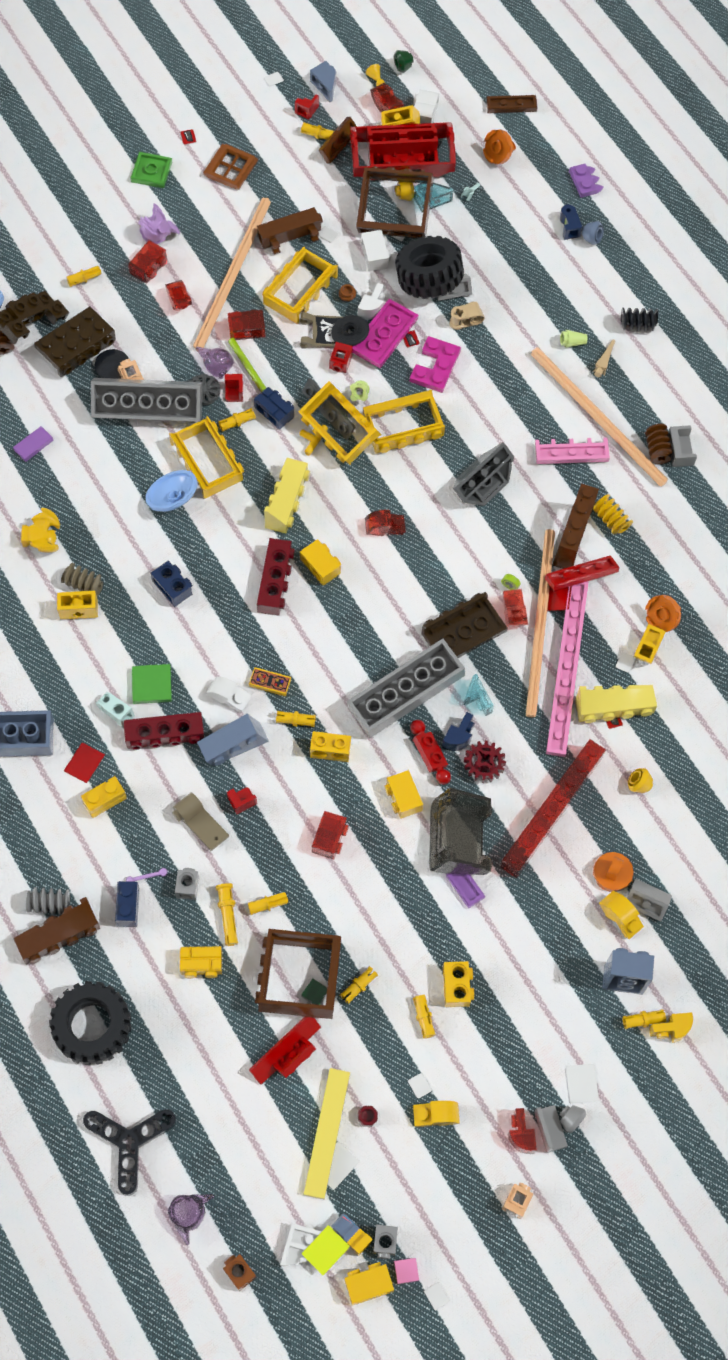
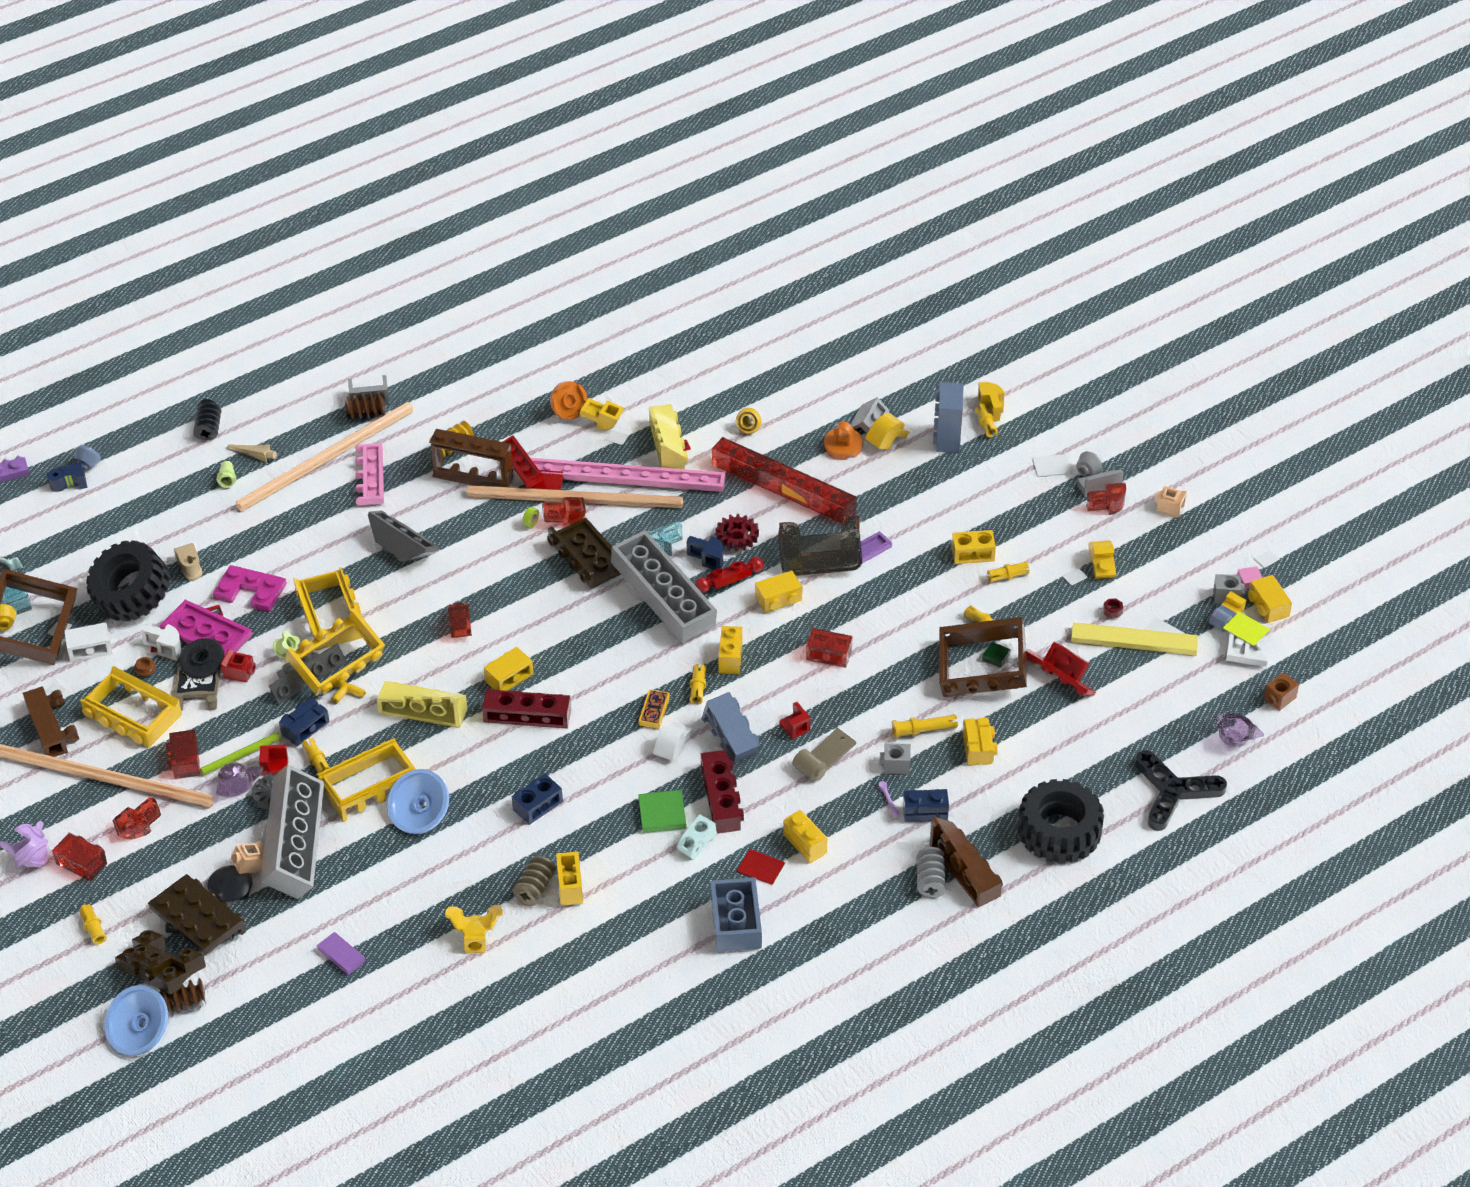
camera: 90 degrees left, 20 degrees down
(267, 903) = (908, 695): yellow axle -> none

